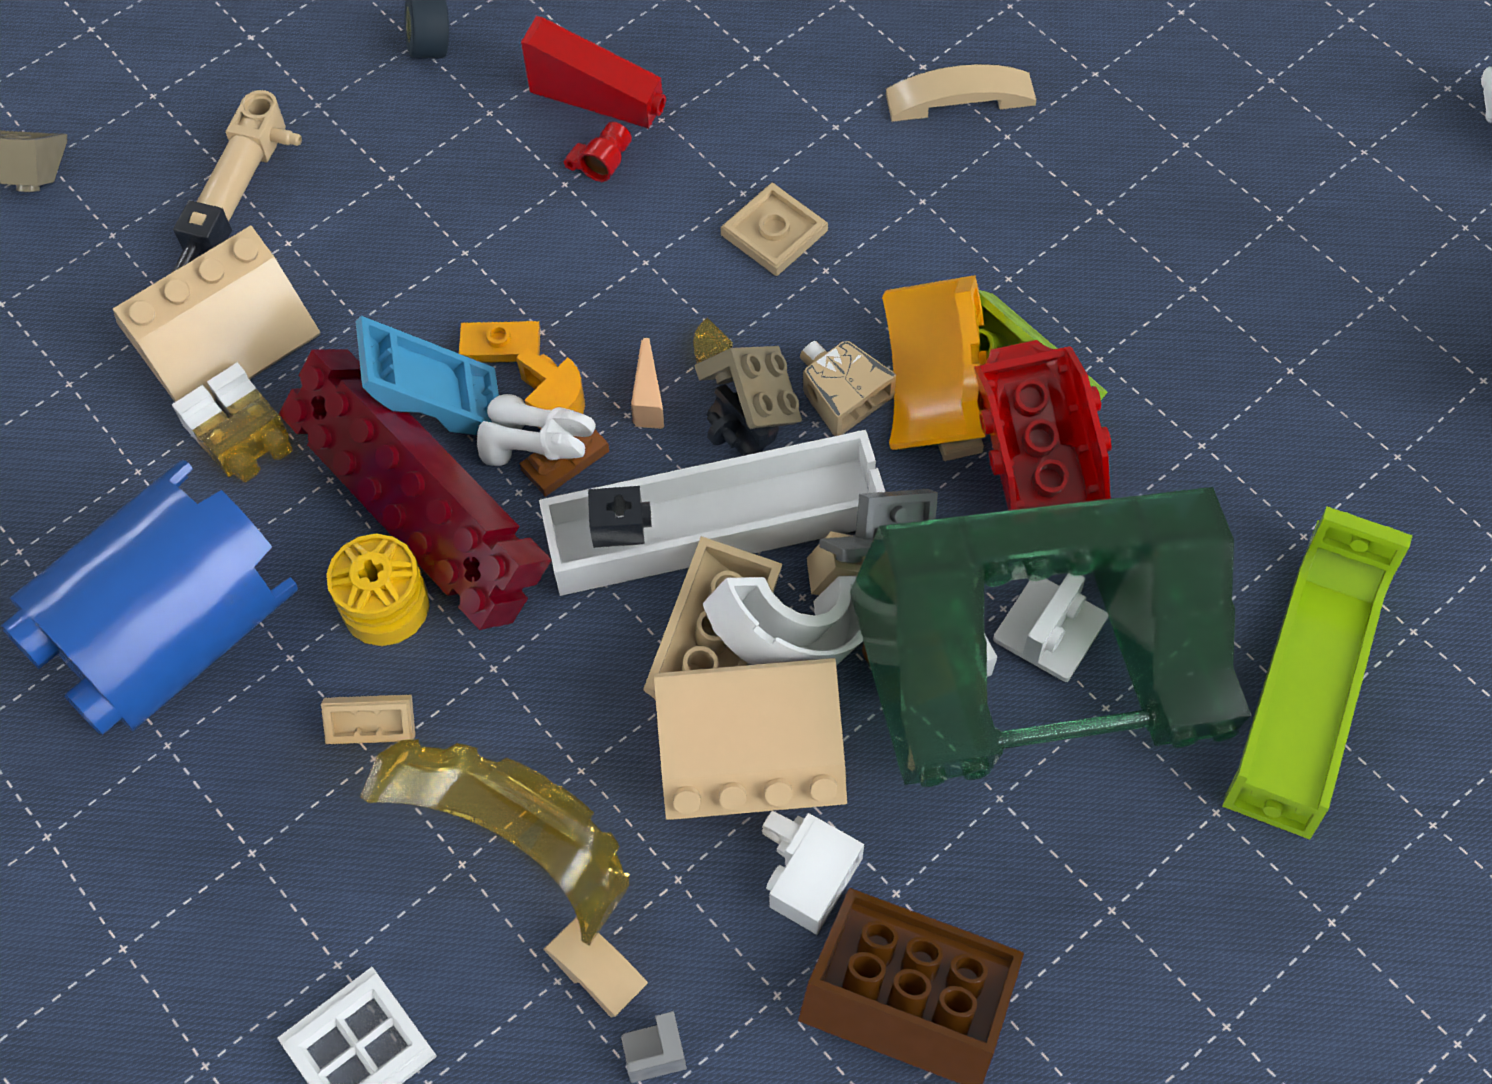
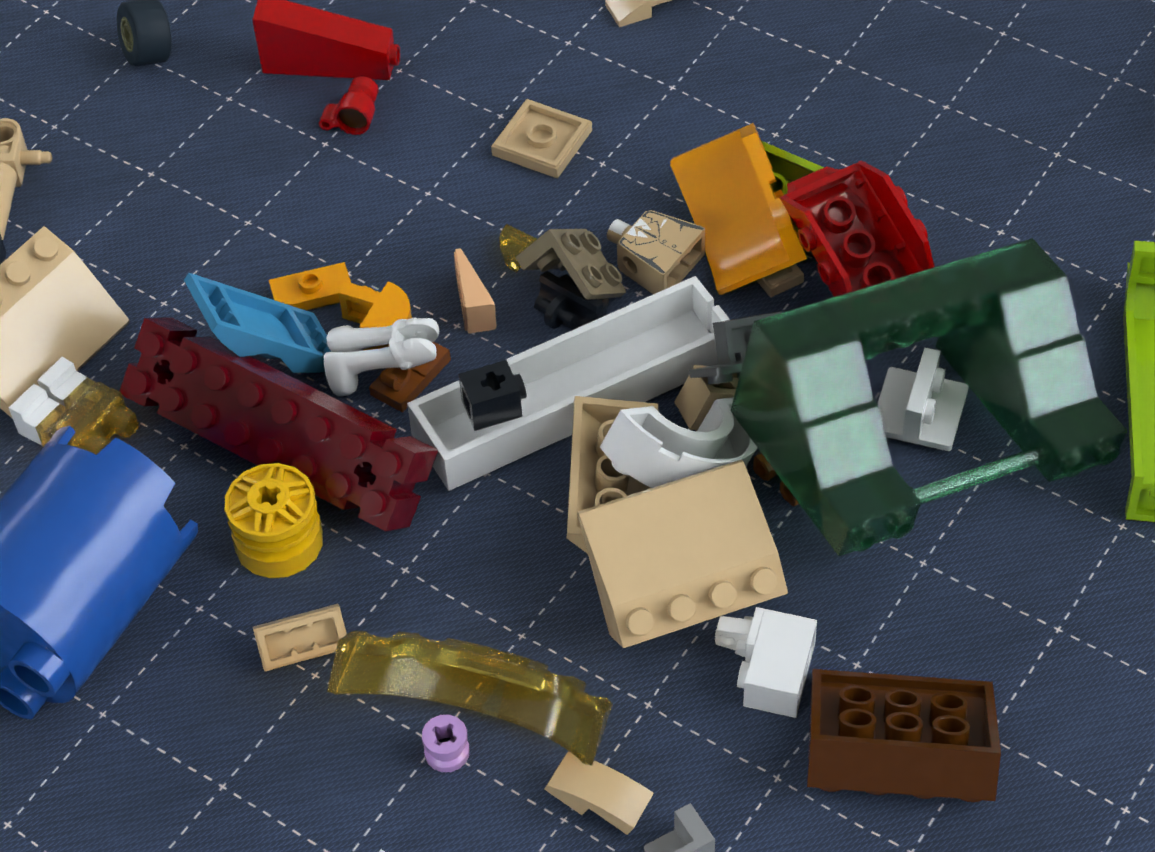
camera: 15 degrees left, 10 degrees down
(472, 880) = (450, 754): none -> lavender wheel

